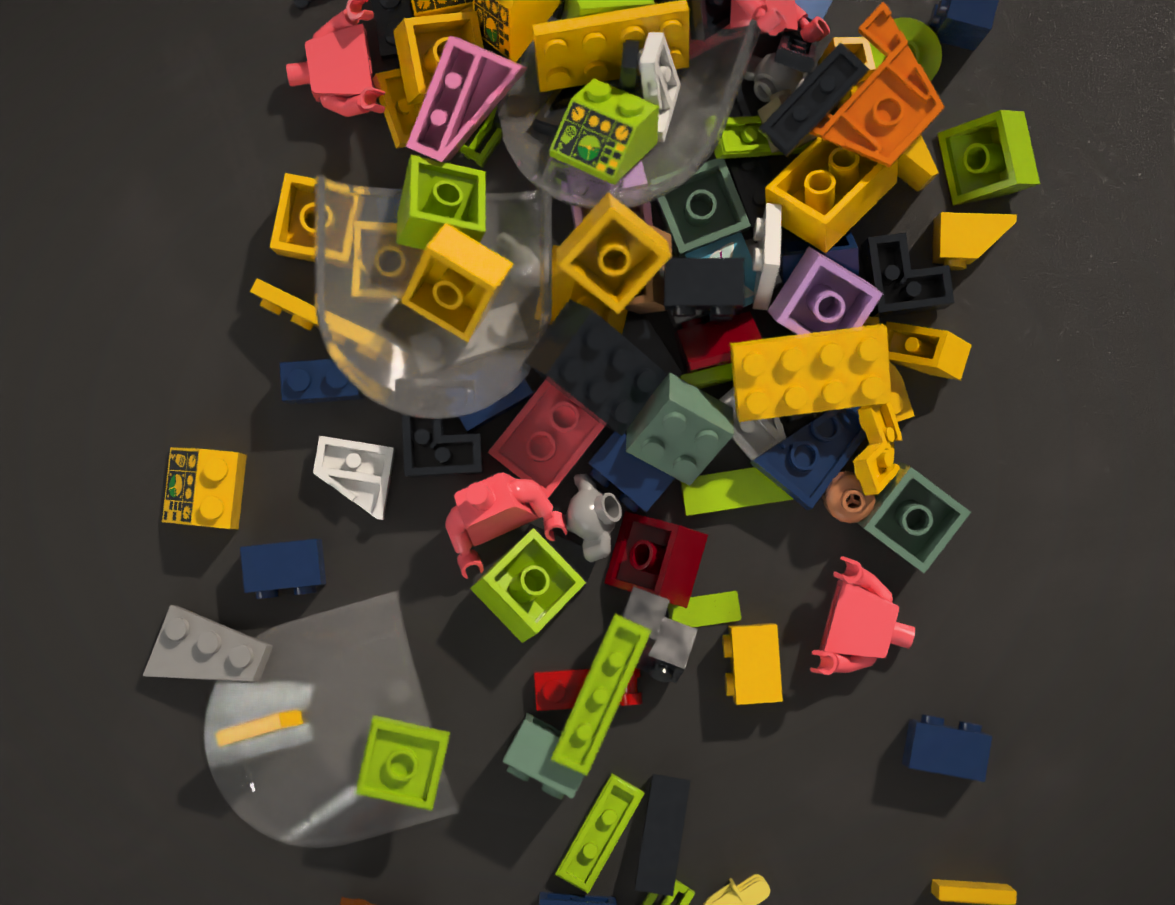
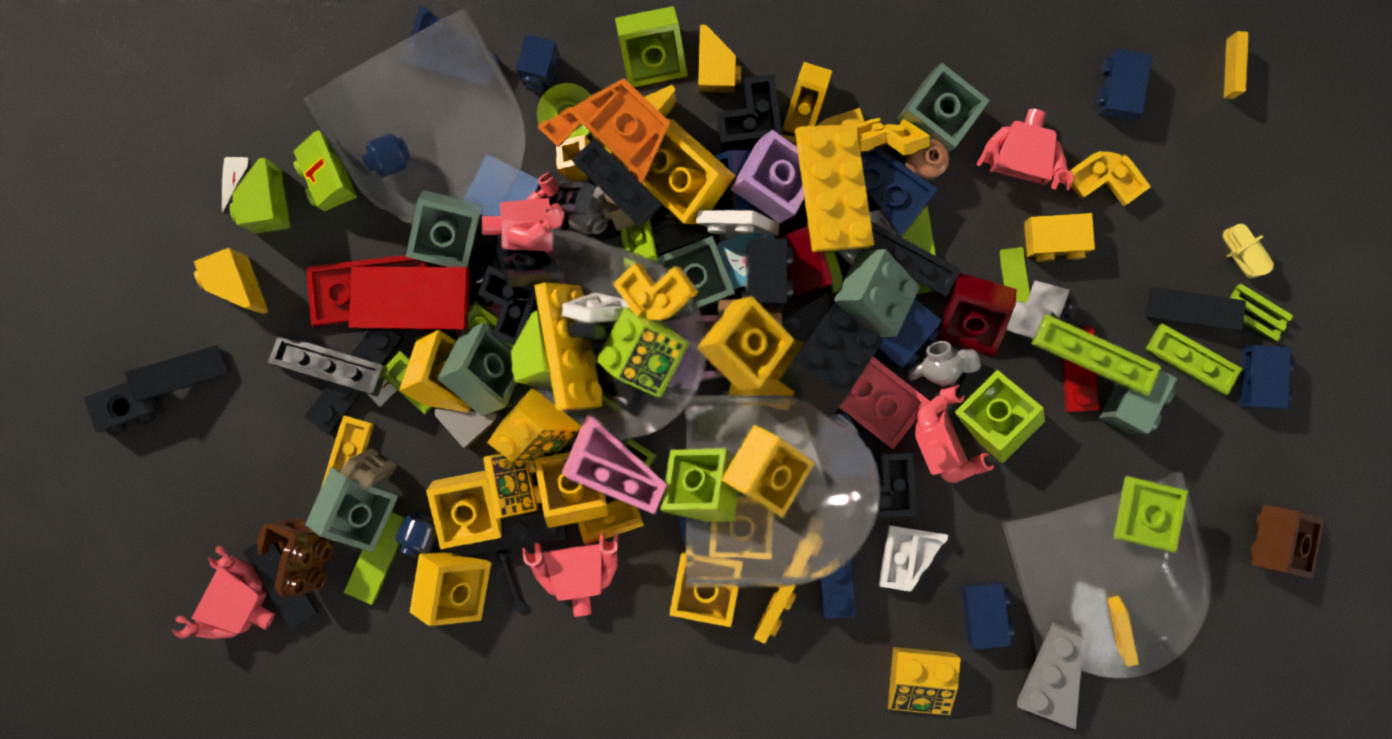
camera: 80 degrees left, 0 degrees up
(669, 138) = (651, 299): none -> yellow plate
(722, 475) = (918, 263): none -> black plate
(840, 727) = (1115, 170): none -> yellow plate

